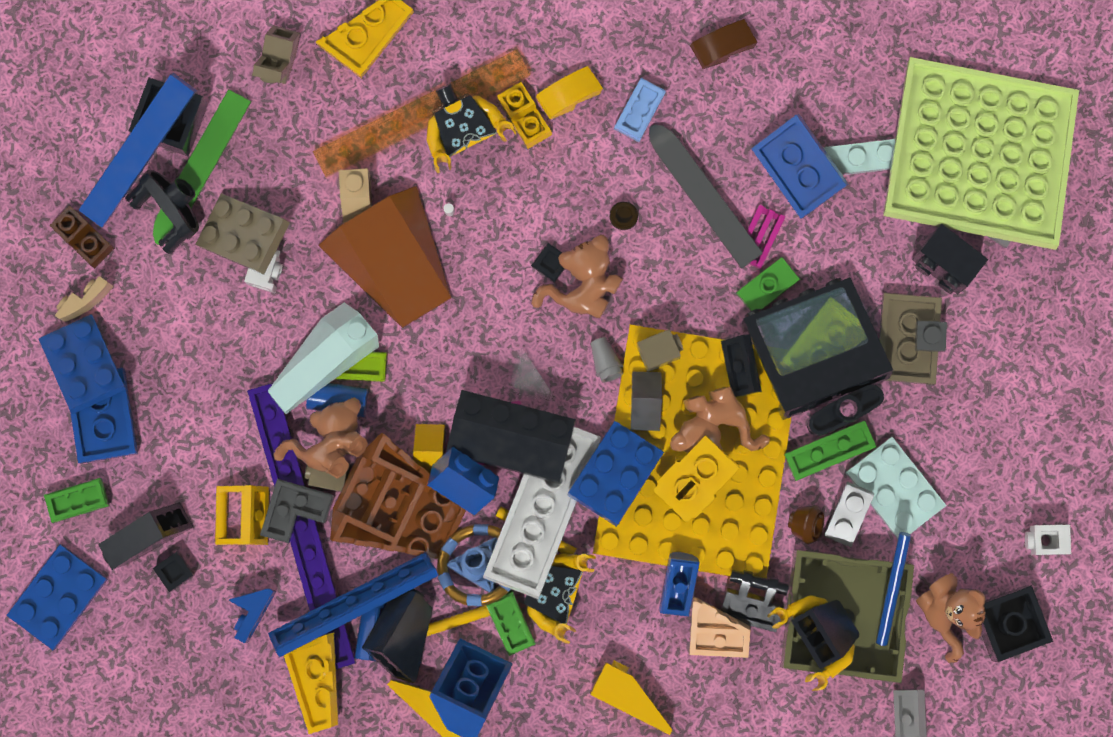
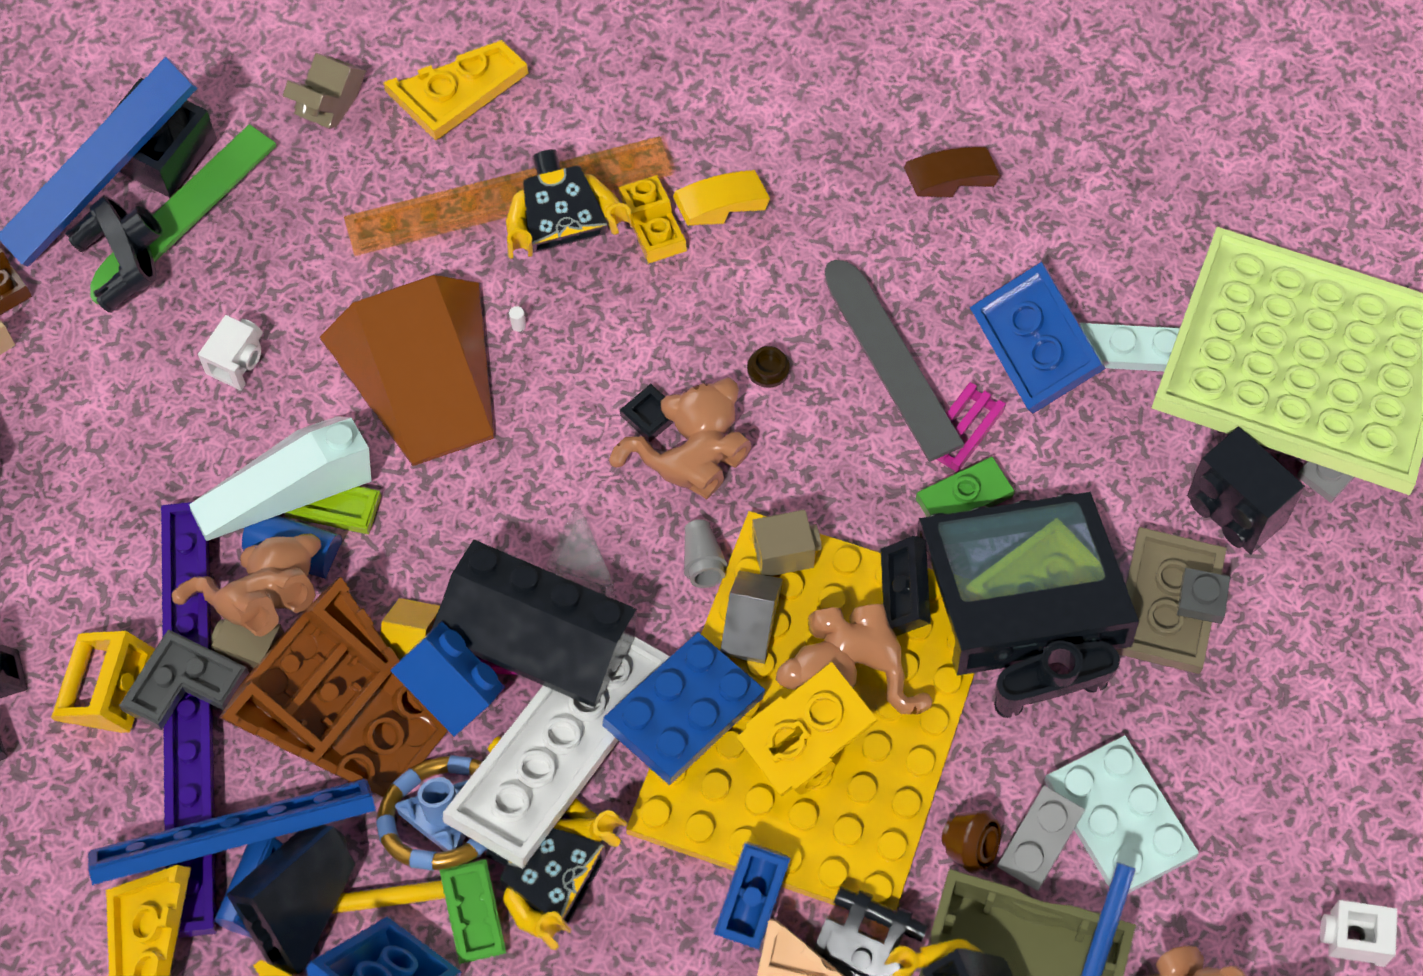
camera: 10 degrees right, 20 degrees down
(242, 233) = (213, 295): dark tan plate -> none
(256, 605) = (86, 814): blue slope -> none
(354, 192) = (388, 263): tan slope -> none
(640, 110) = (817, 236): light blue plate -> none
(829, 450) = (1024, 740): bright green plate -> none

